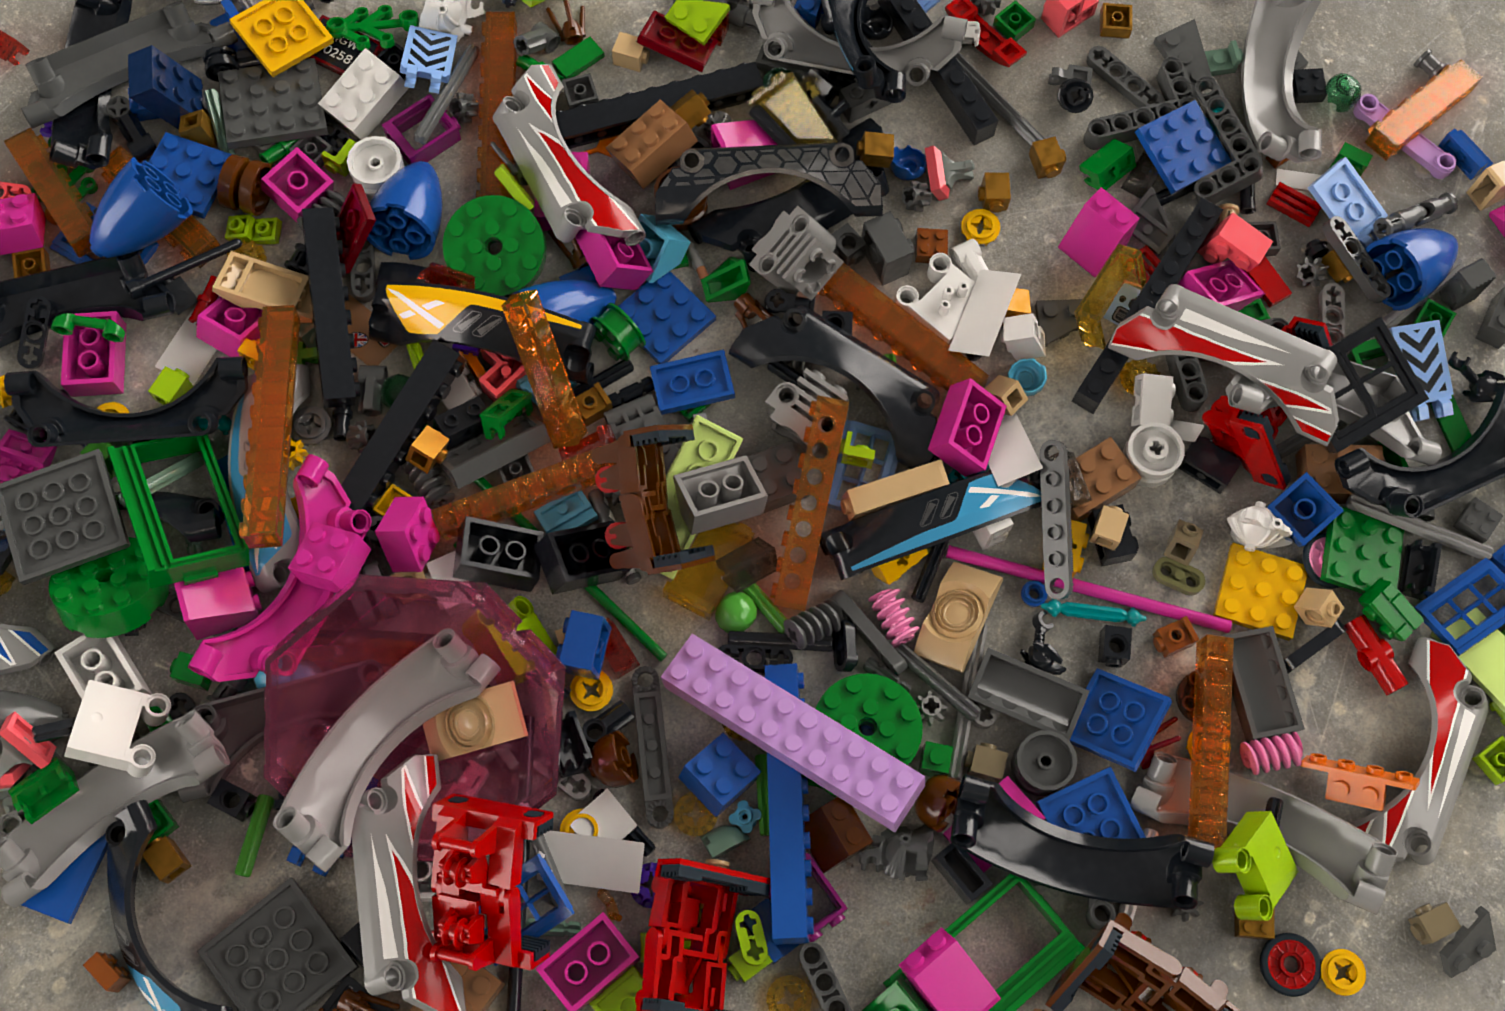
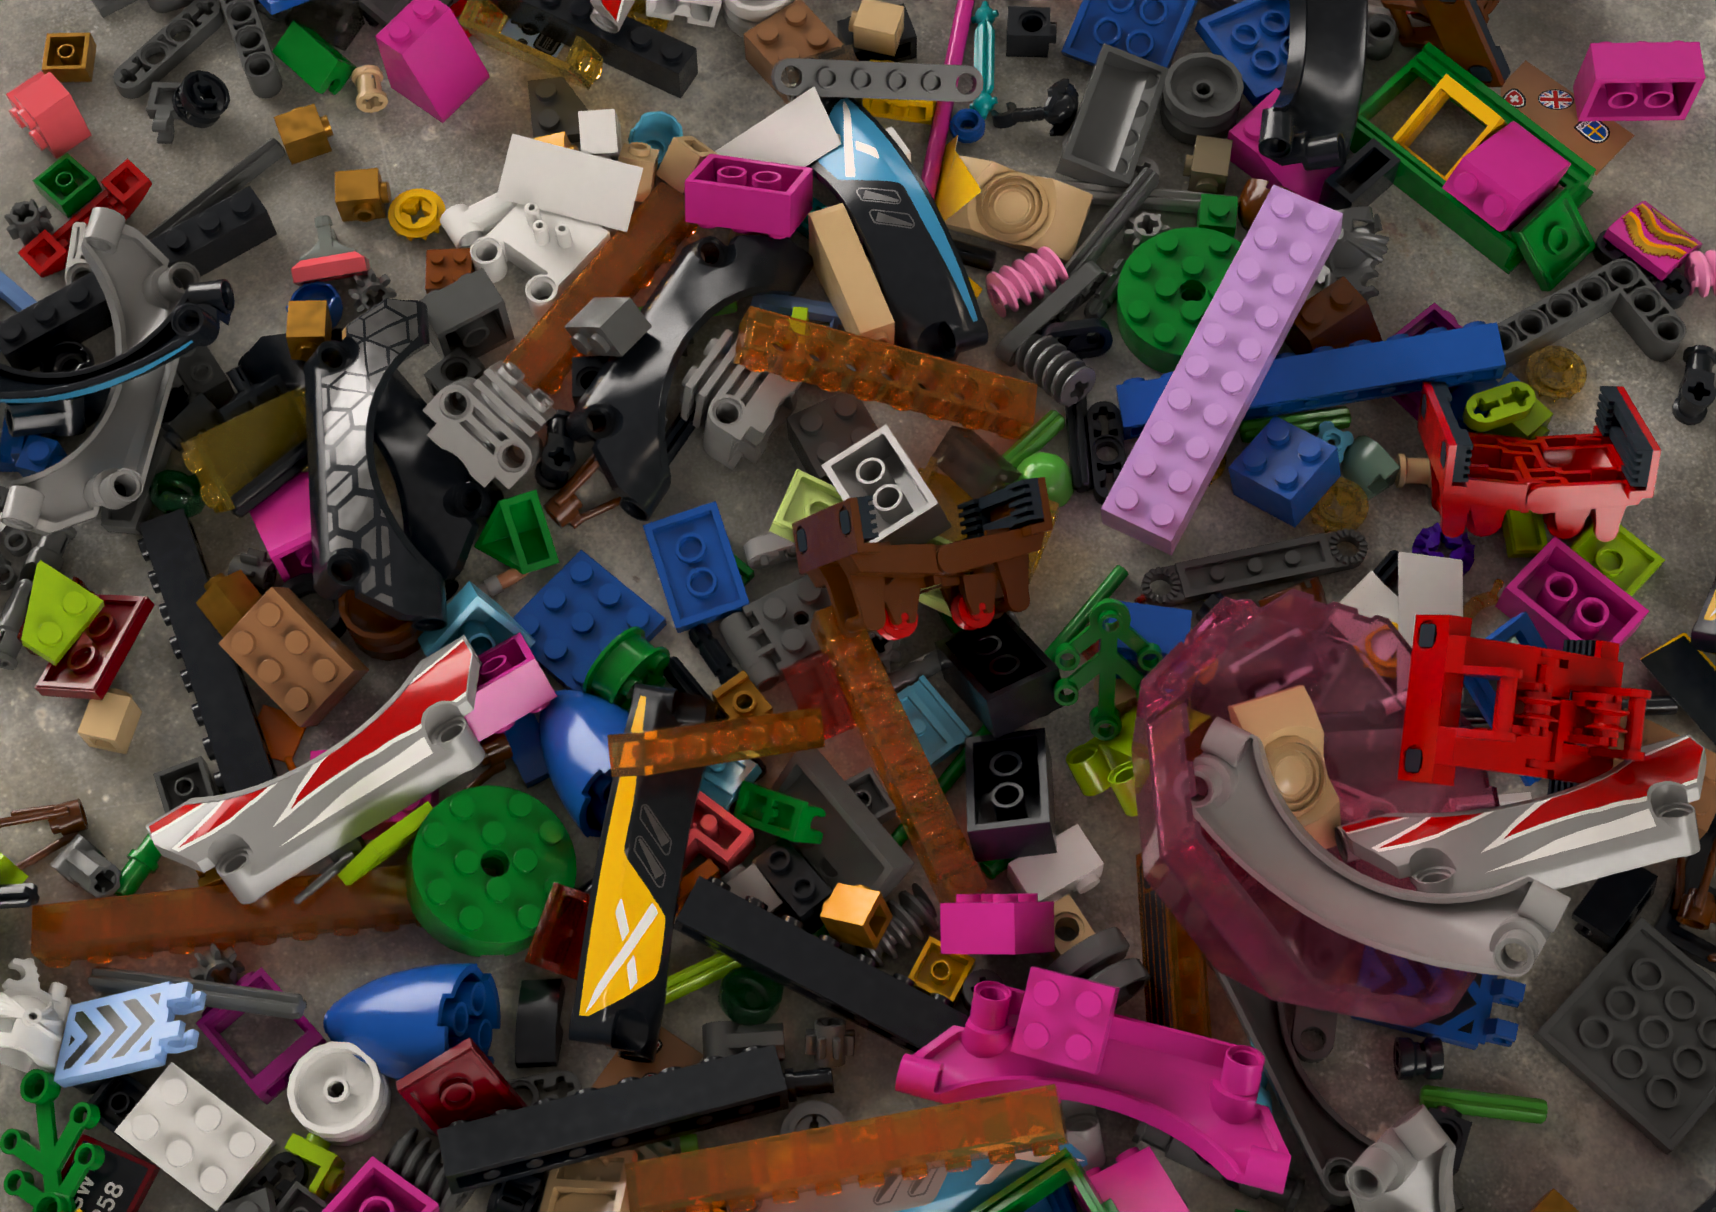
camera: 90 degrees left, 5 degrees down
(578, 58) = (117, 805): green tile -> none
(579, 608) = (1105, 663): none -> green plant
(864, 328) = (607, 326): none -> dark grey brick
(960, 568) = (959, 186): none -> yellow sticker
(1002, 361) = (643, 156): none -> tan brick
(1017, 963) = (1444, 90): none -> yellow window
(1075, 196) = (369, 88): none -> tan bush

